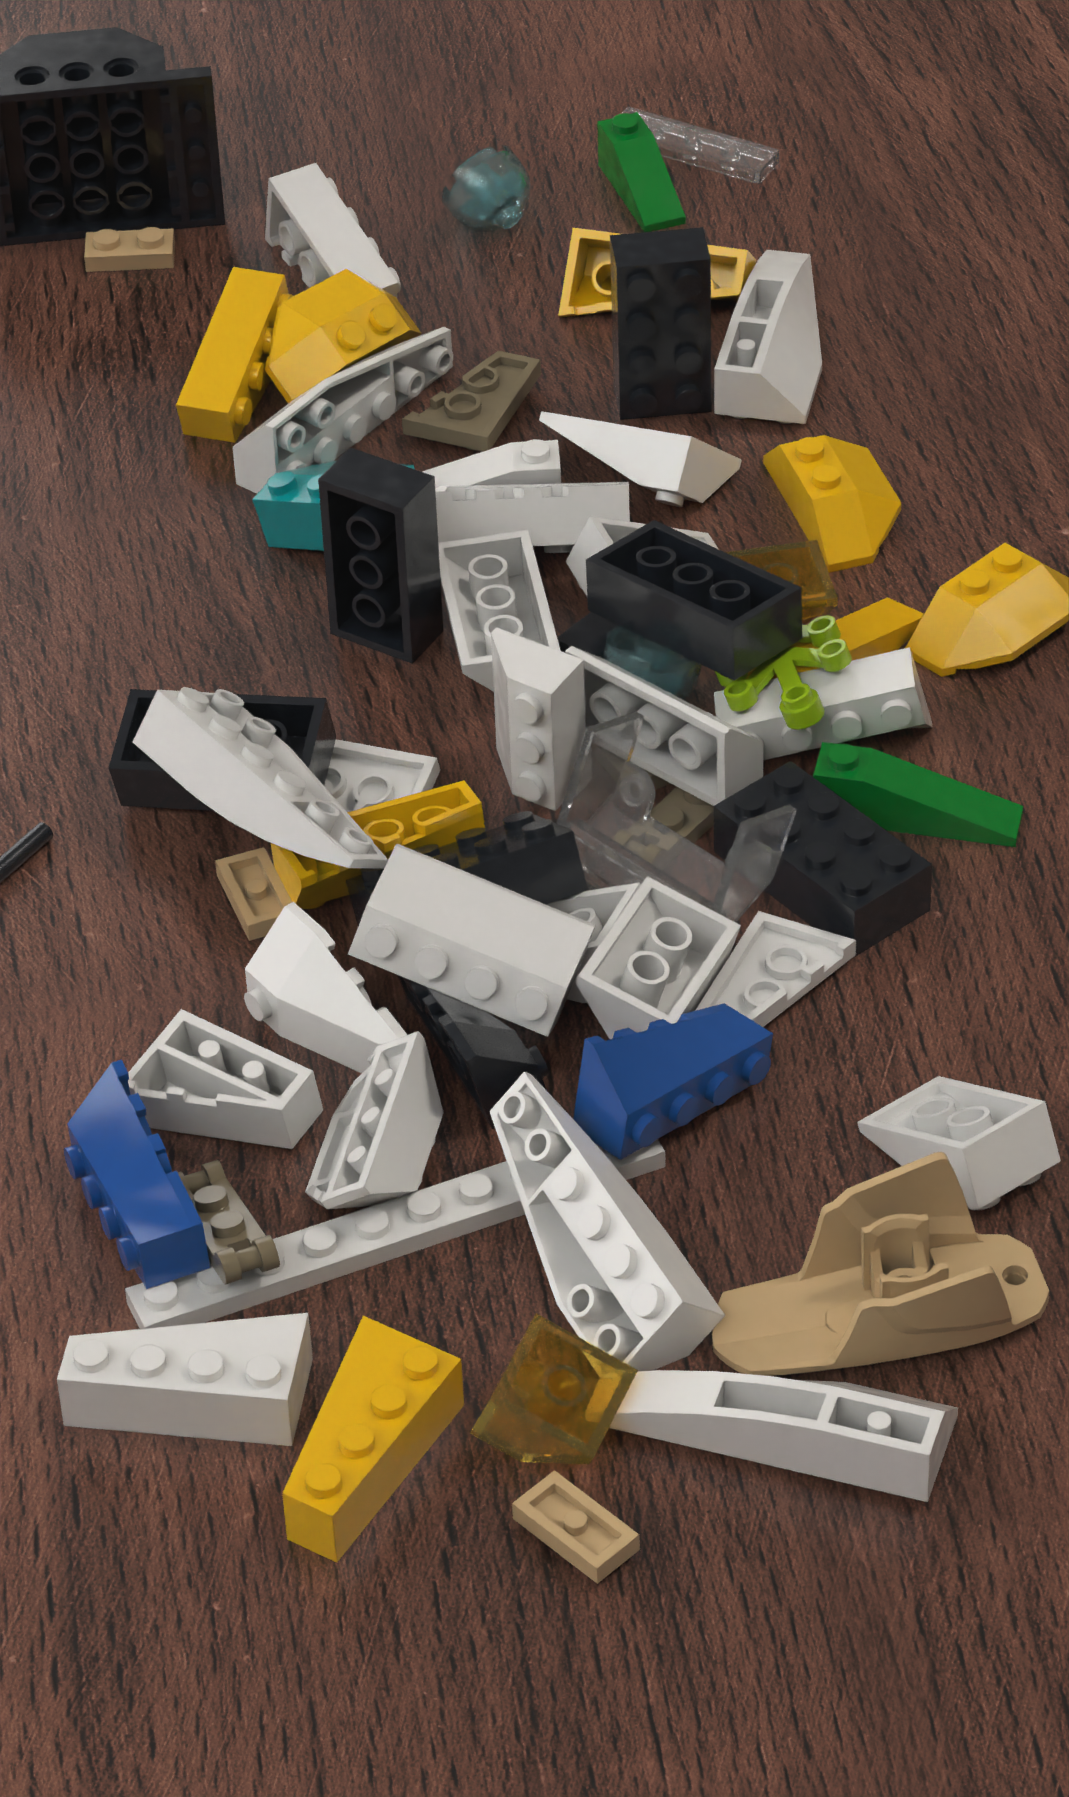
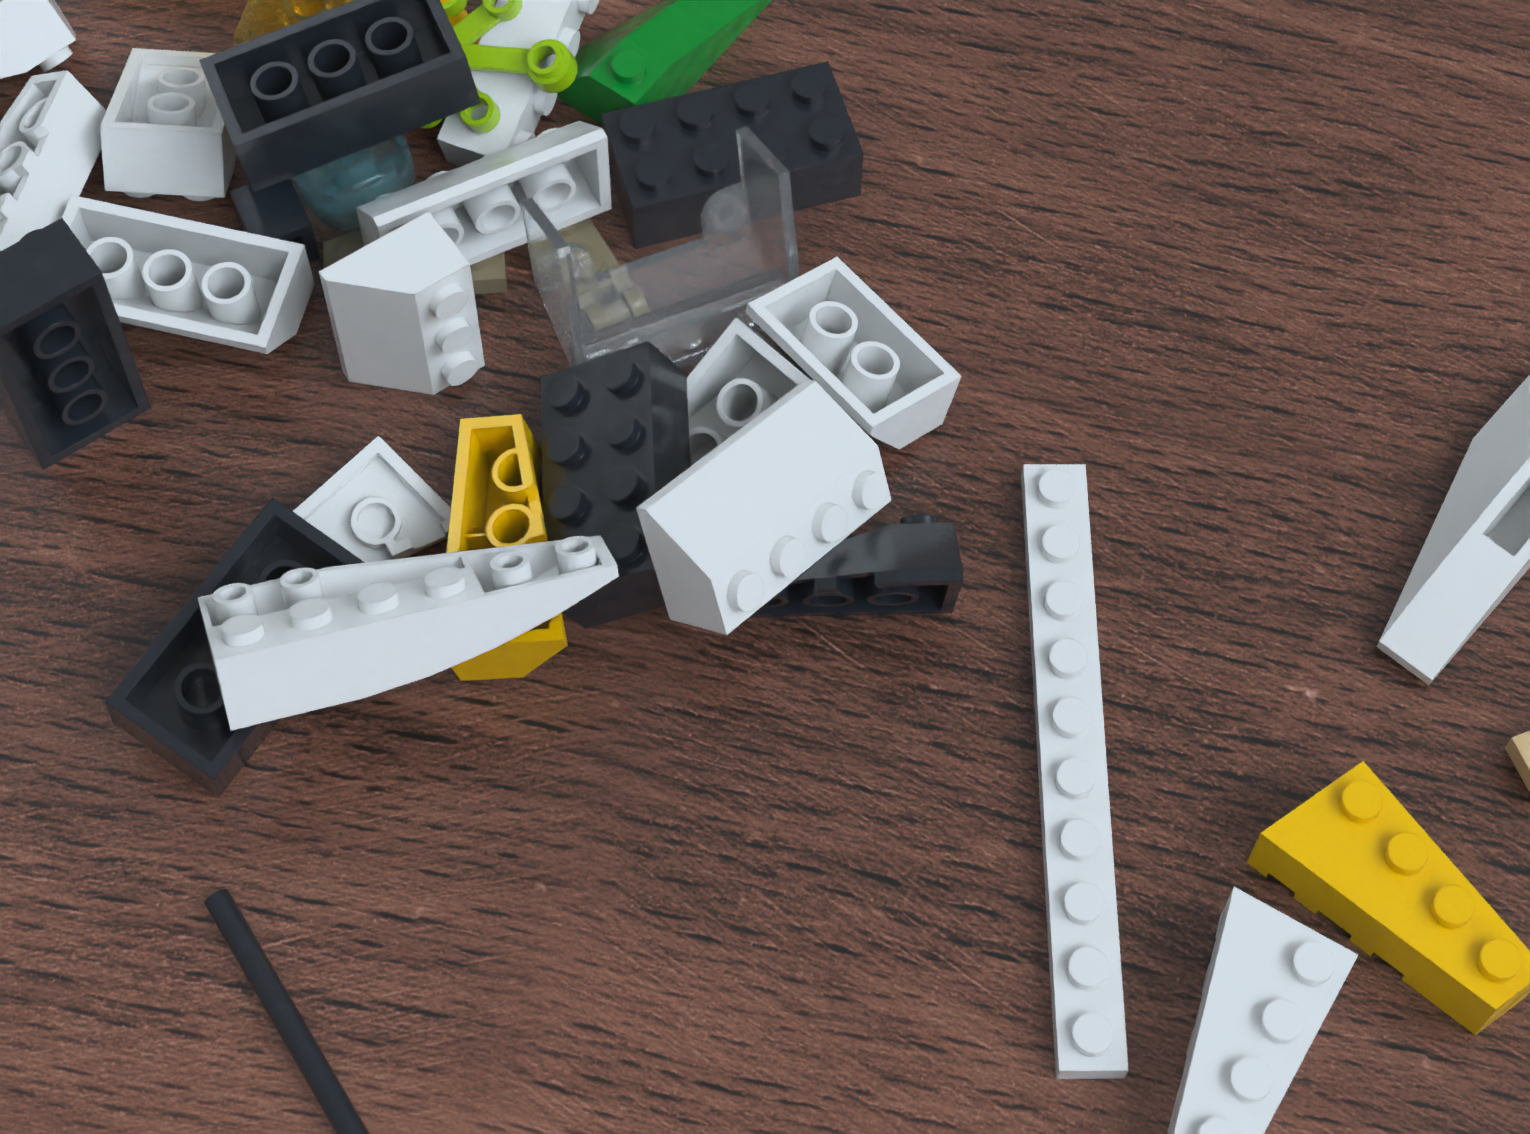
camera: 70 degrees left, 20 degrees up
(133, 1183) = (937, 1001): blue wedge -> none
(223, 1086) = (801, 851): white wedge -> none
(231, 1233) = (1020, 930): dark tan plate -> none
(253, 890) = (476, 705): tan plate -> none
(310, 997) = (695, 706): white wedge -> none
(380, 1130) = (955, 729): white wedge -> none
(553, 1397) = (1416, 701): clear yellow slope -> none
(597, 1239) = (1212, 571): white wedge -> none
(666, 1075) = (1021, 415): blue wedge -> none
(776, 967) = (871, 247): white wing -> none
(885, 1282) = (1395, 371): tan piece -> none
(986, 1133) = (1187, 207): white slope -> none

